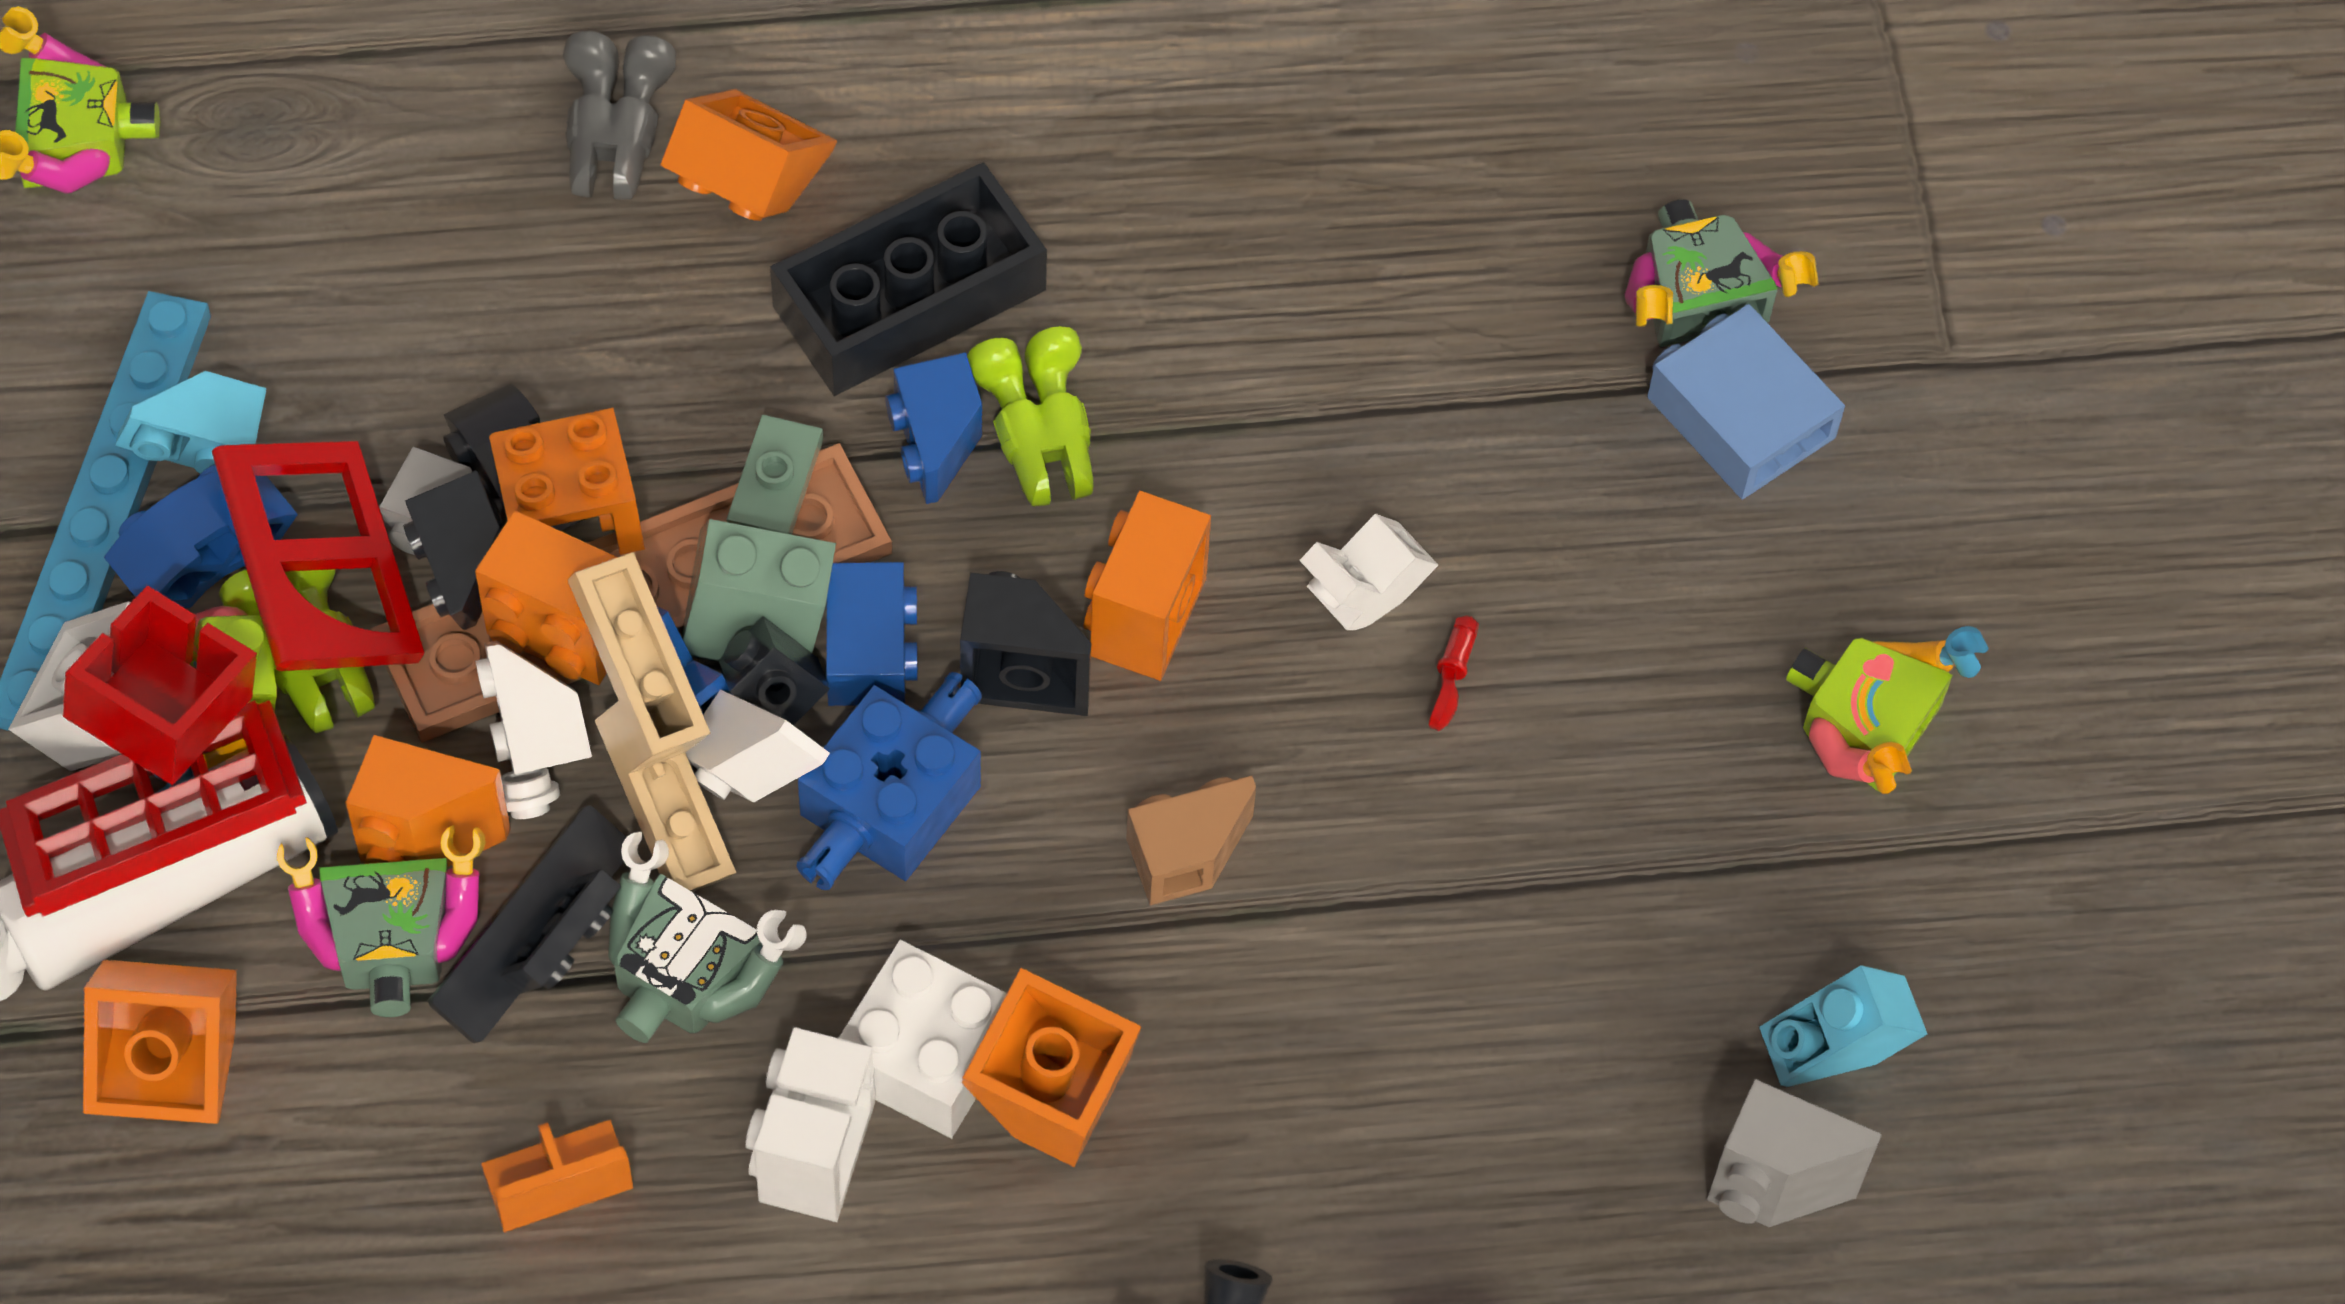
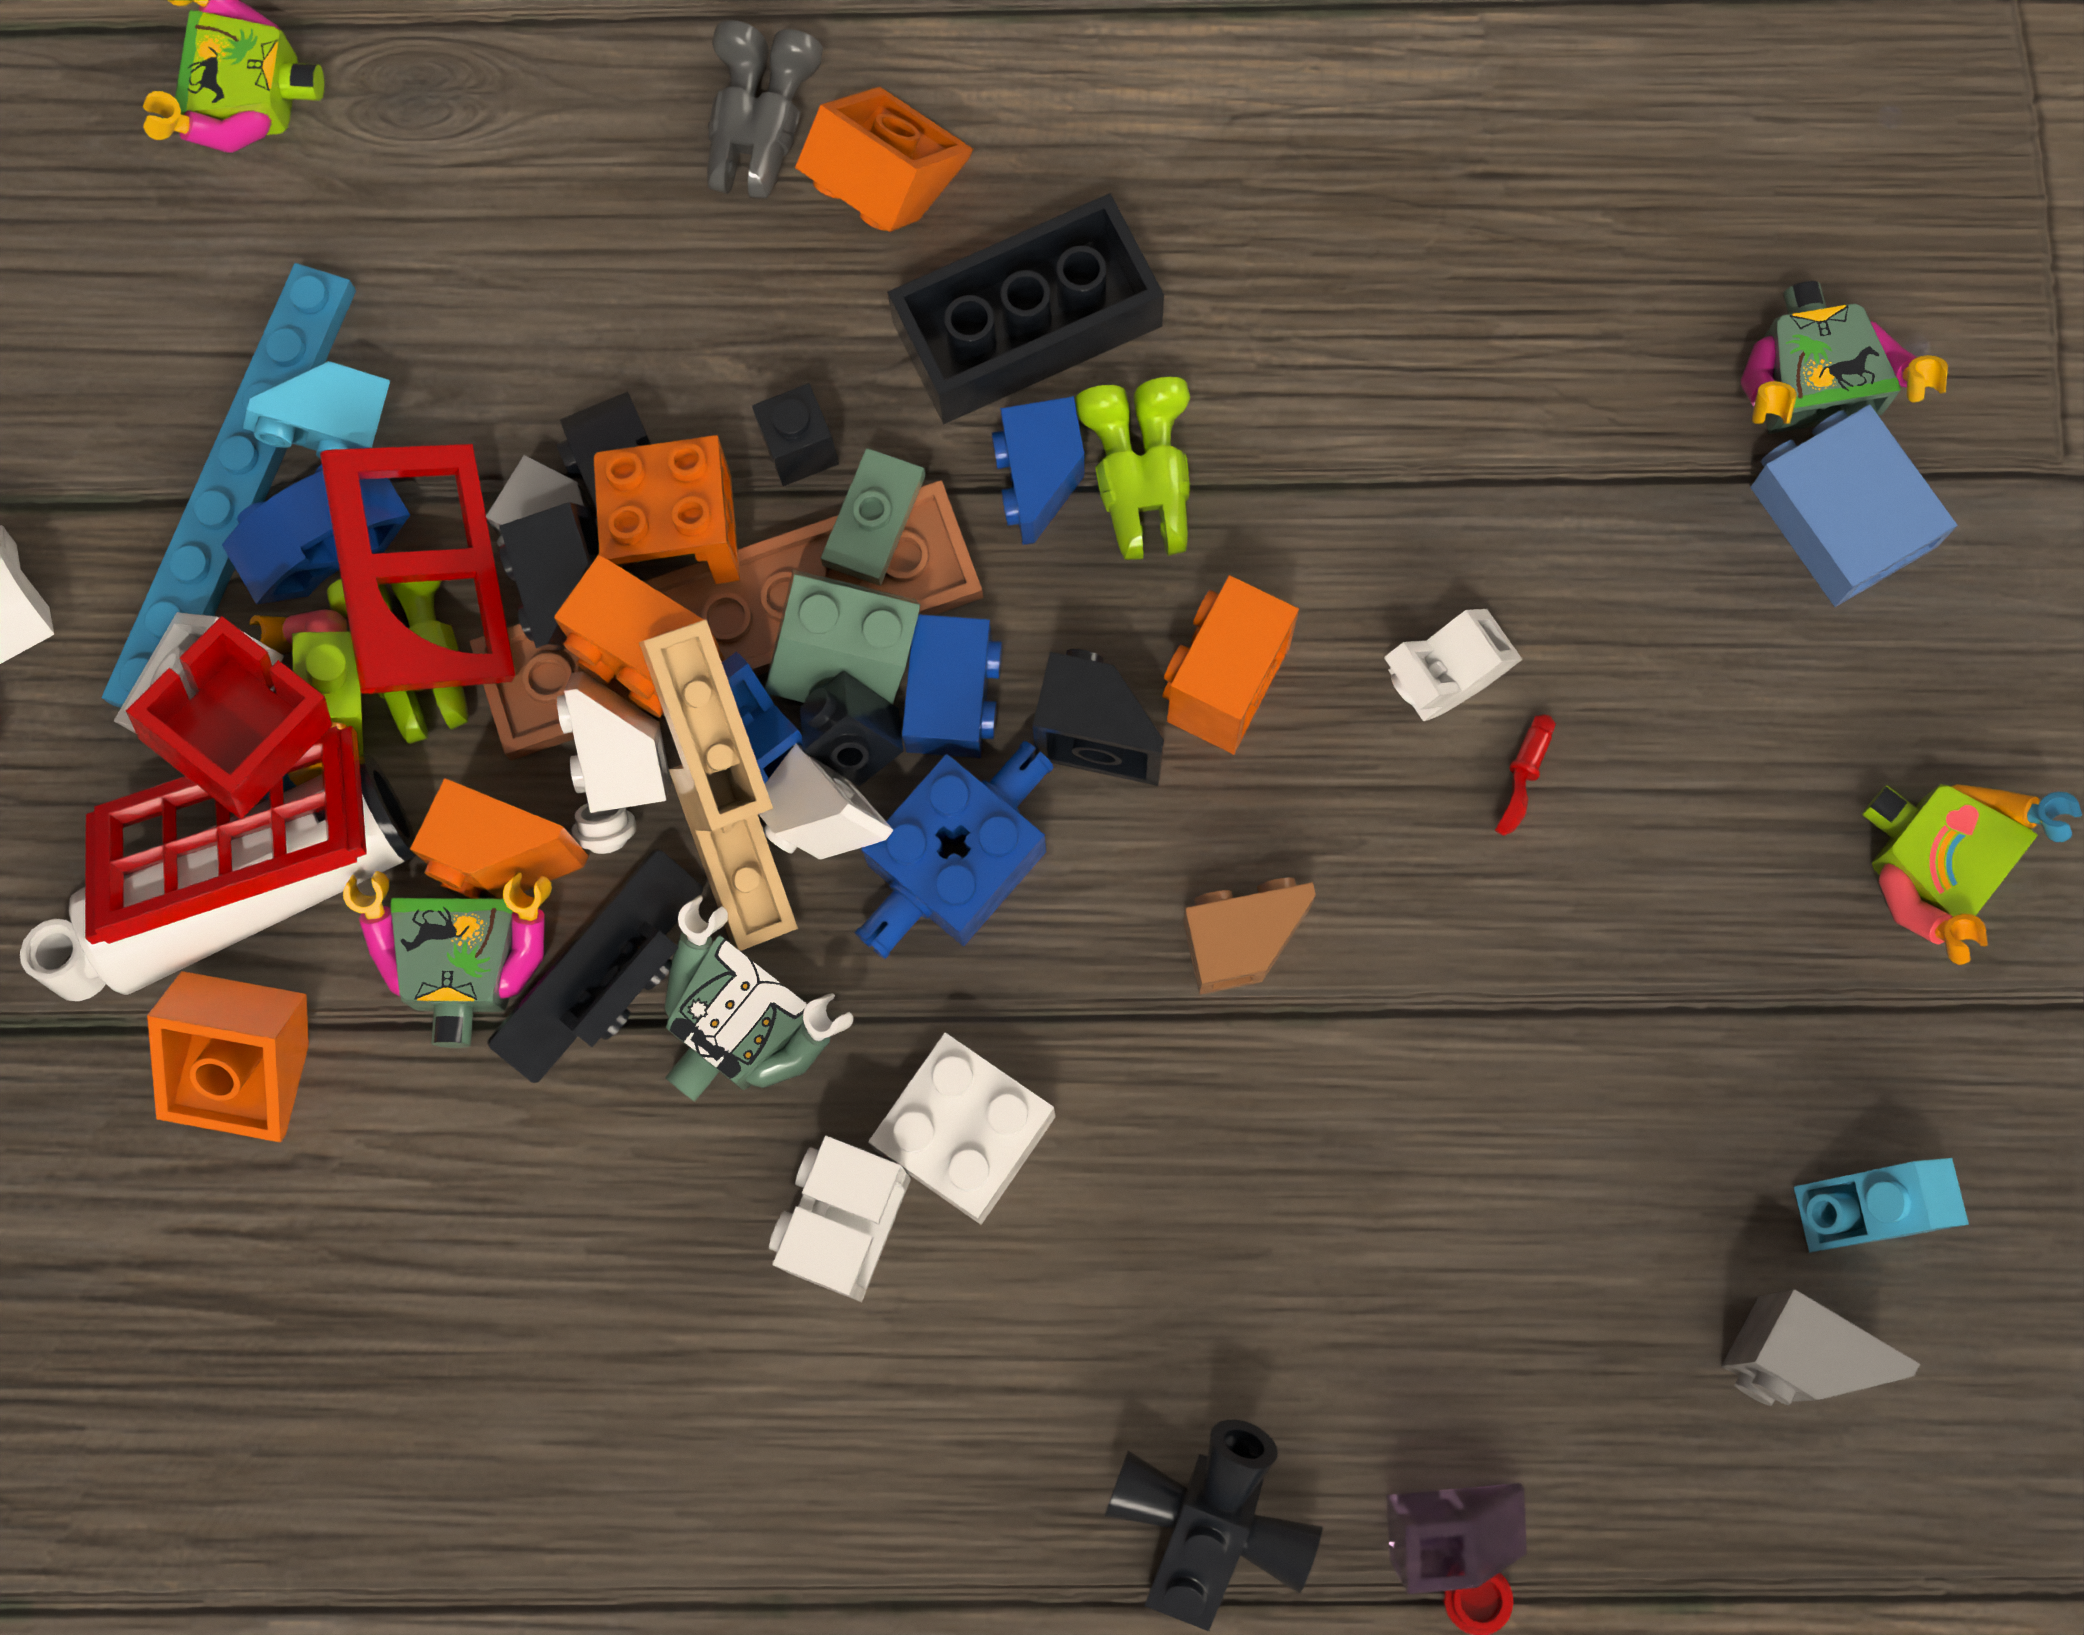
camera: 15 degrees right, 15 degrees up
(557, 1174) = (594, 1231): orange panel -> none
(686, 412) = (795, 434): none -> black brick
(1050, 1065) = (1081, 1178): orange slope -> none

